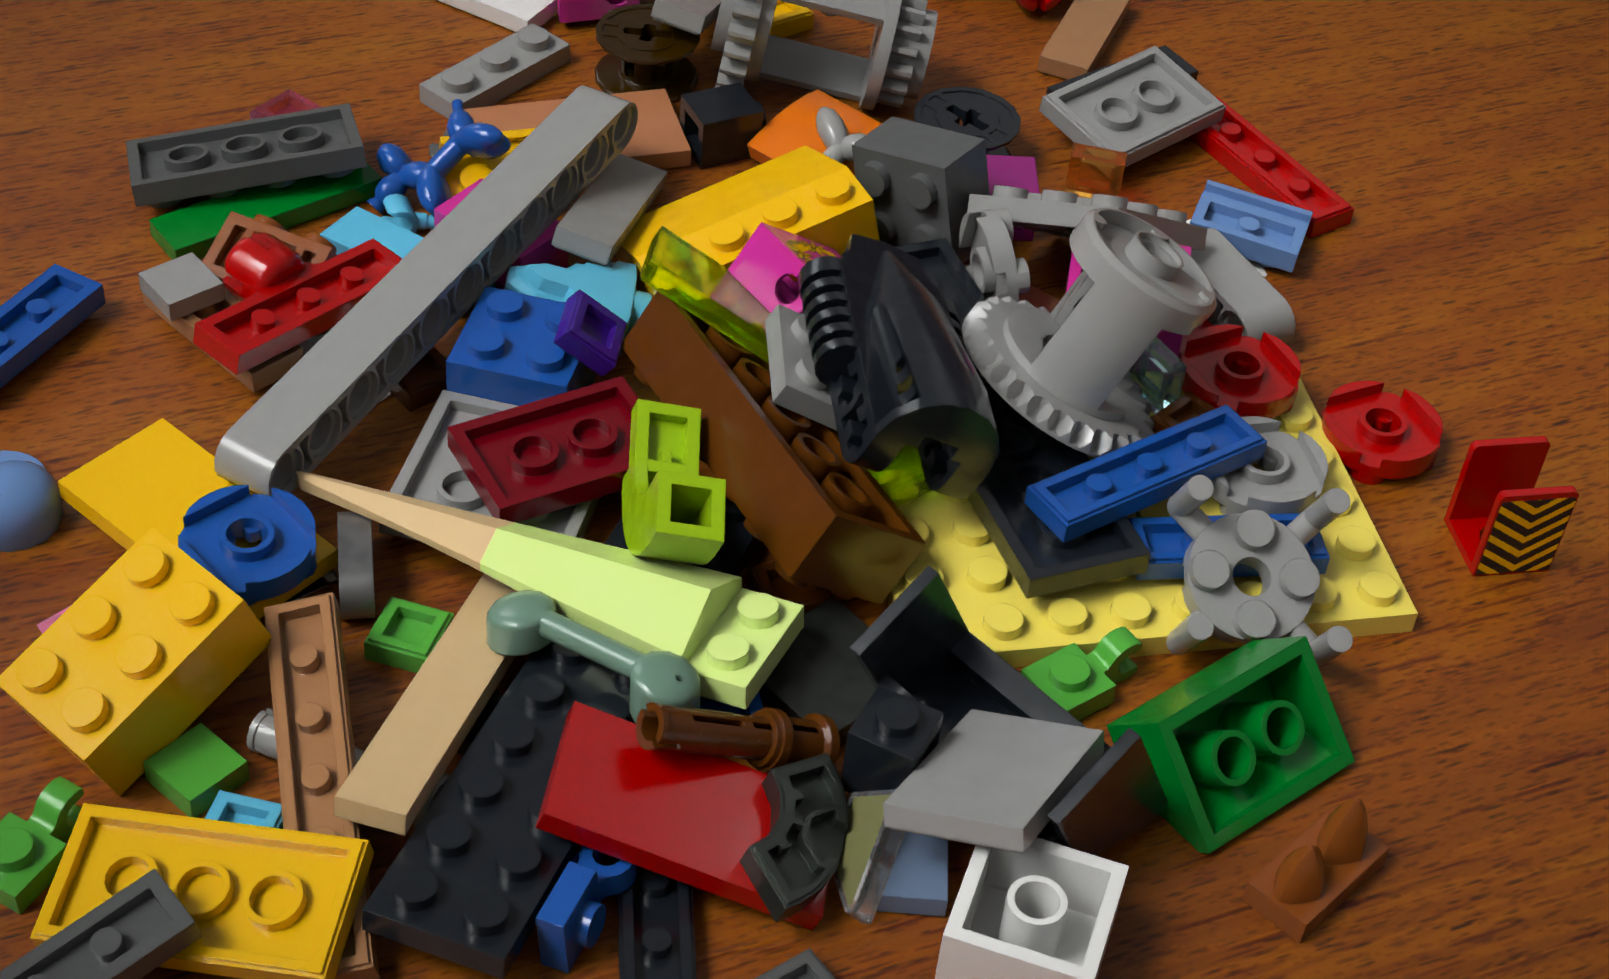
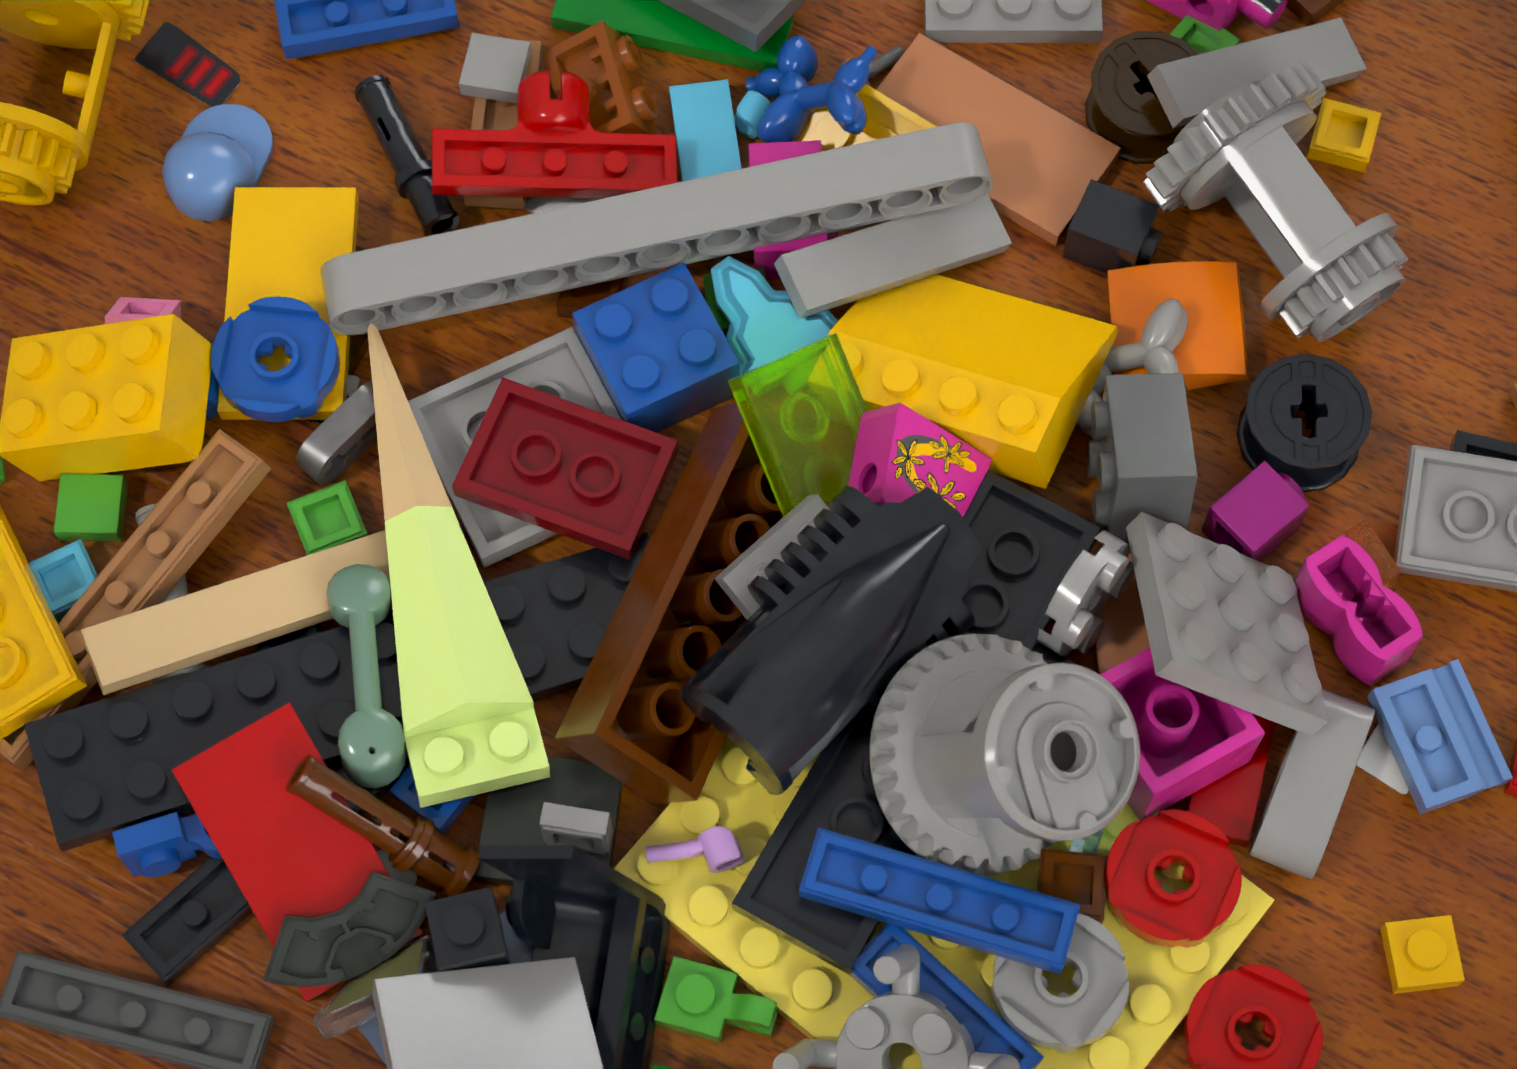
camera: 55 degrees right, 25 degrees up
(193, 393) = (405, 155): none -> black pin
(590, 333) = (691, 381): dark purple tile -> none
(665, 501) = (554, 590): lime arch -> none
(850, 627) = (576, 826): none -> light grey tile
(970, 570) = (716, 844): none -> lavender hand
(1139, 176) = (1368, 623): none -> dark pink brick
(1392, 331) = (1422, 954): none -> yellow plate

